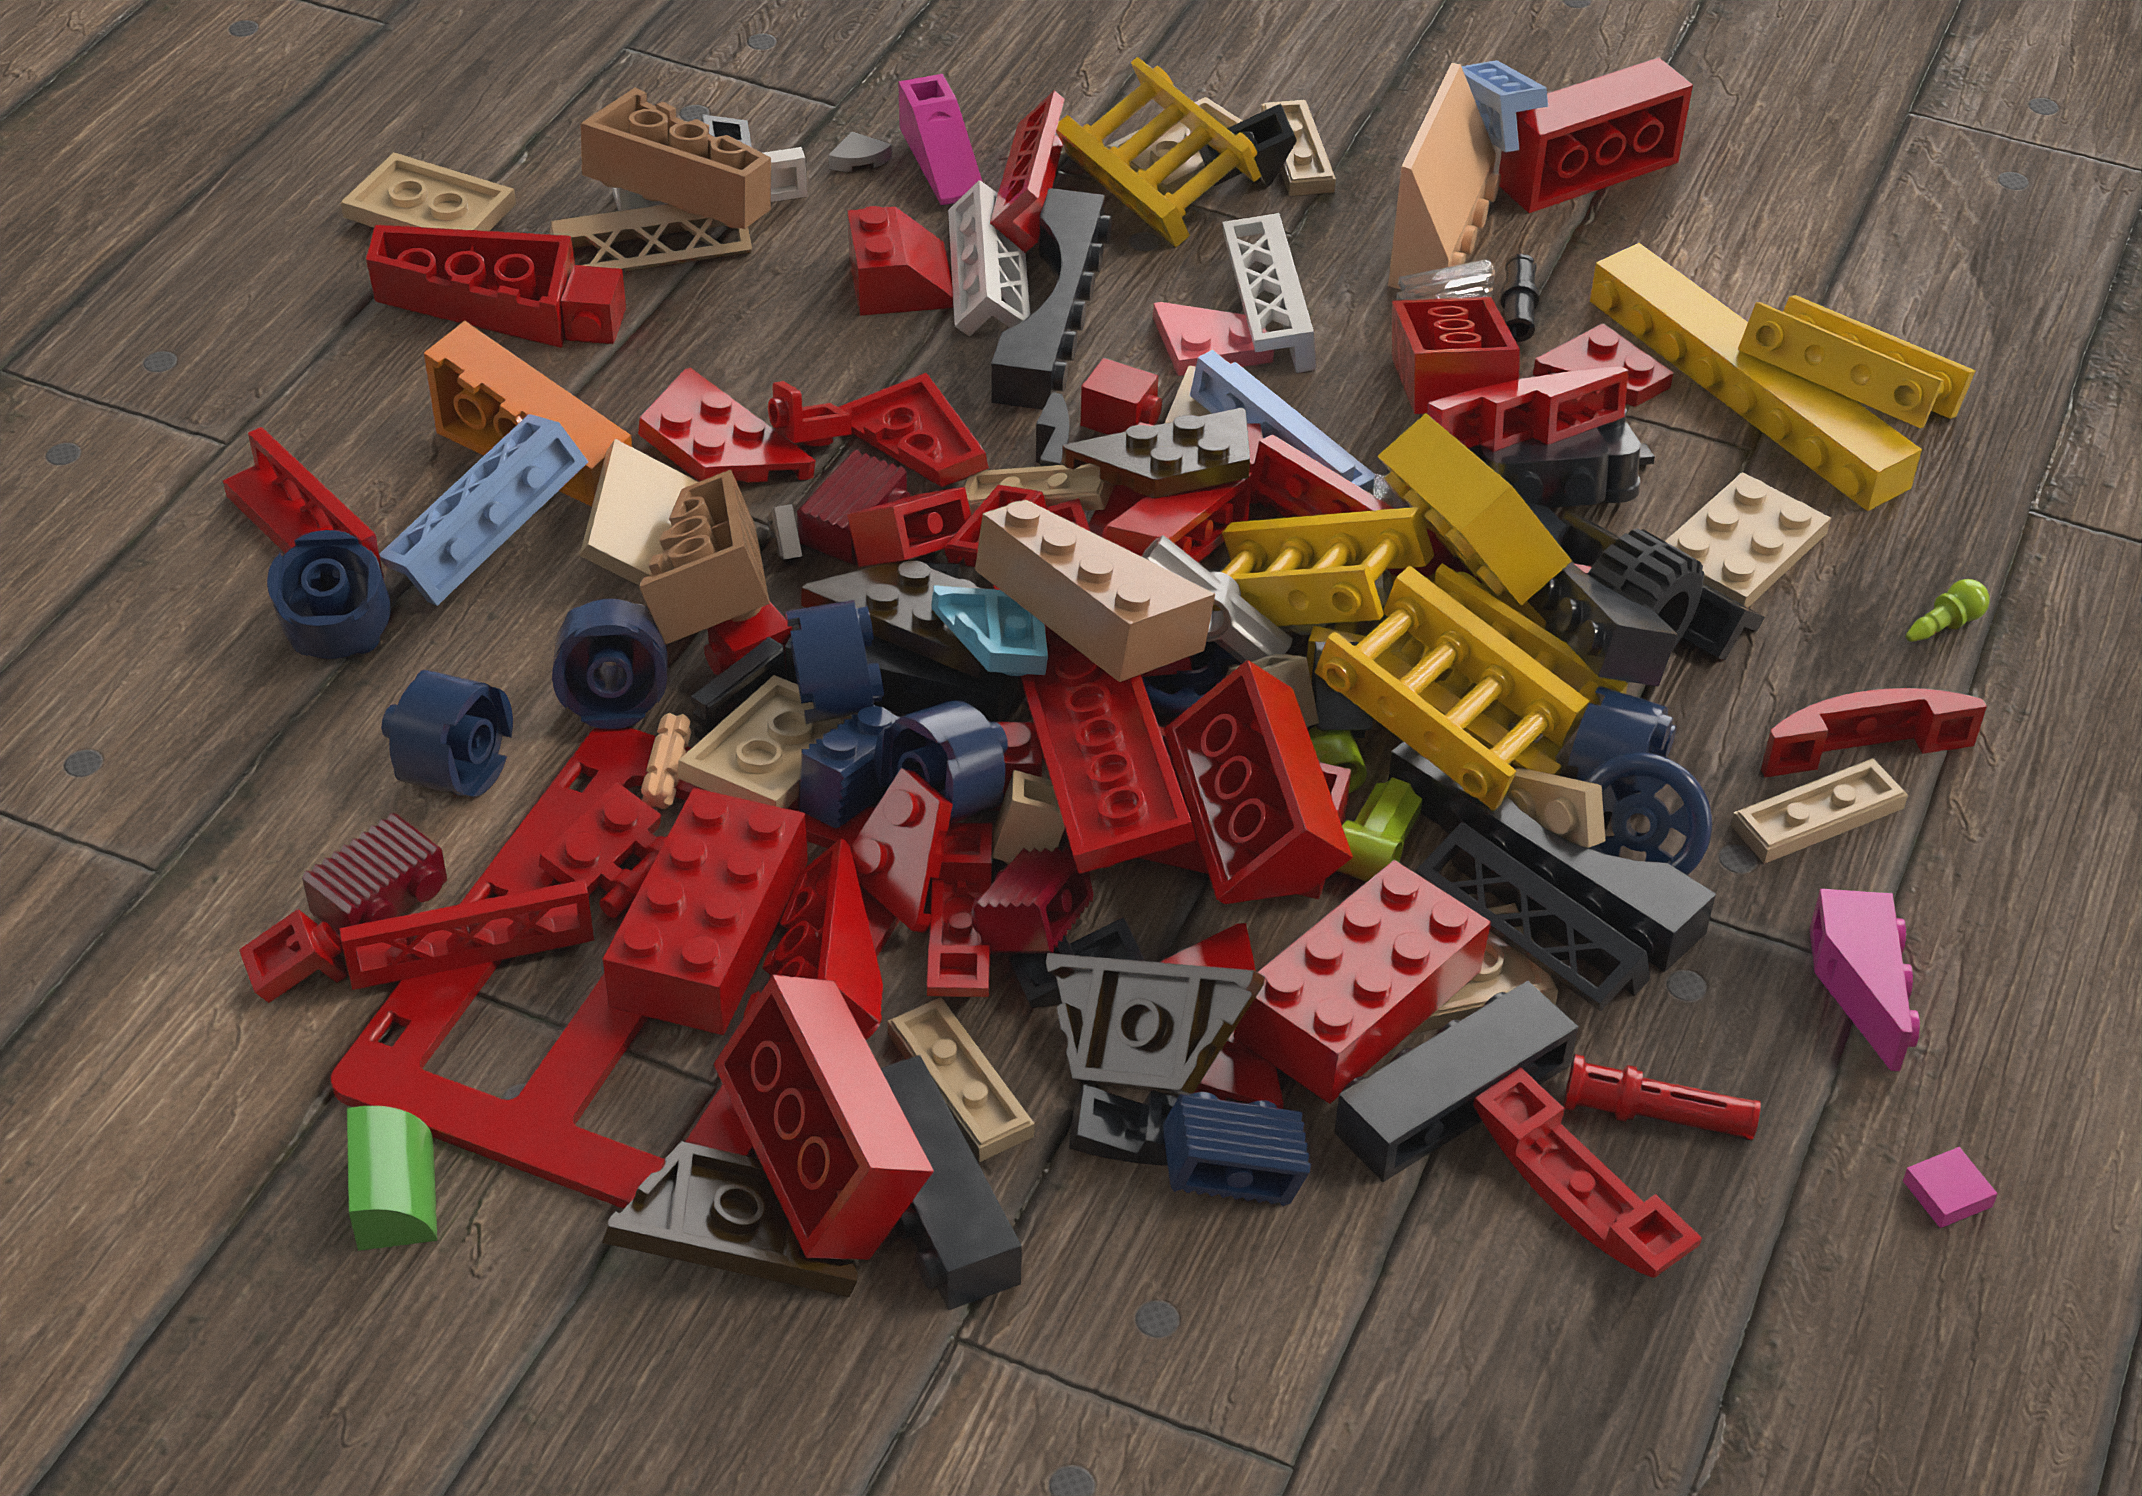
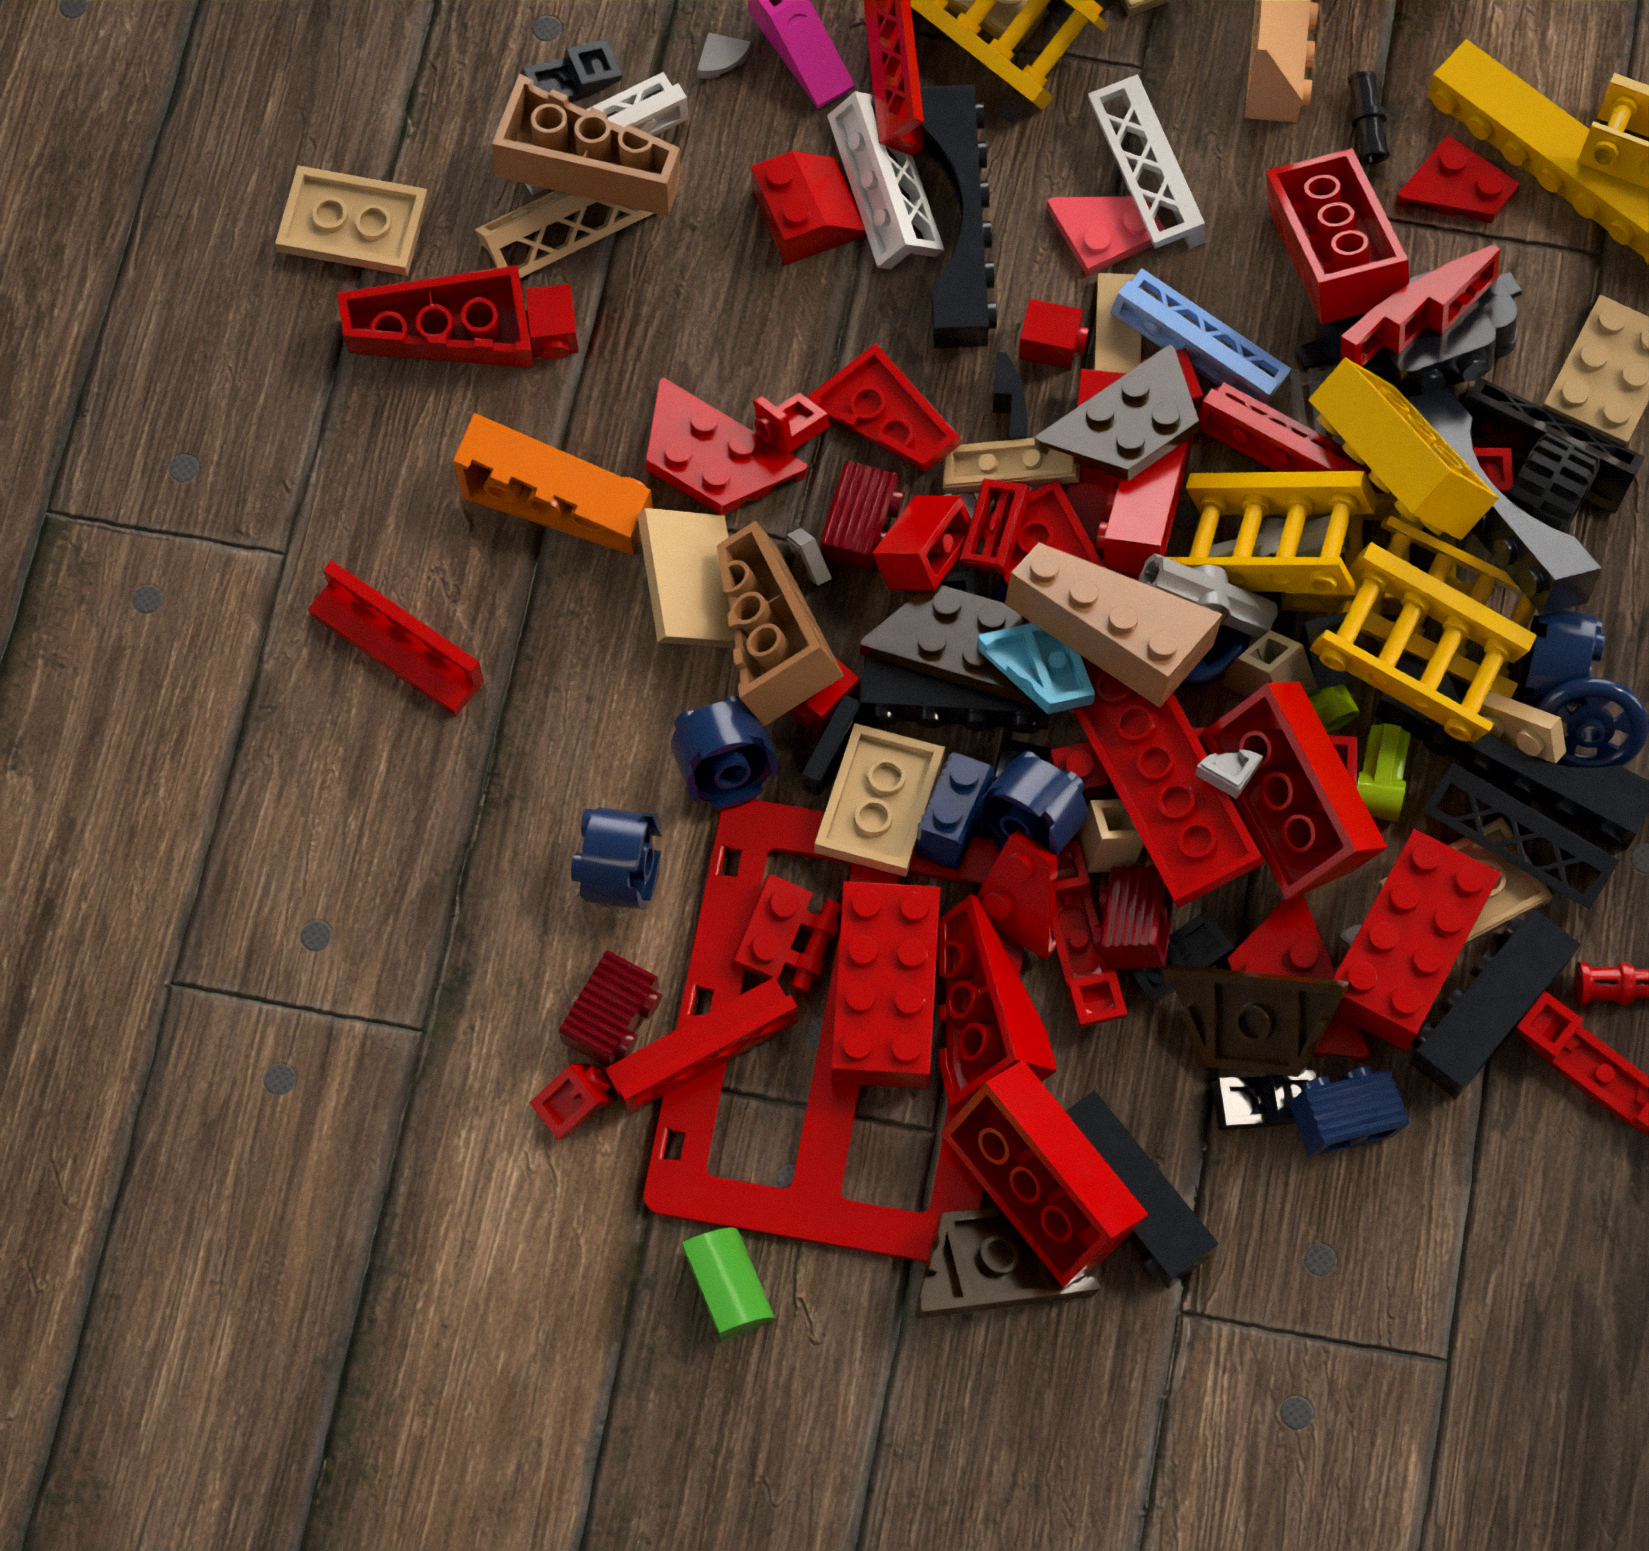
camera: 10 degrees left, 25 degrees up
(329, 595) = (439, 720): dark blue brick -> none
(484, 507) = (560, 606): light blue fence -> none
(663, 761) = (797, 834): light nougat axle -> none
(833, 660) = (916, 726): dark blue brick -> none
(967, 1081) = (1120, 1084): tan tile -> none
(1180, 744) = (1229, 770): none -> light grey tile
(1449, 282) = (1302, 129): clear tile -> none

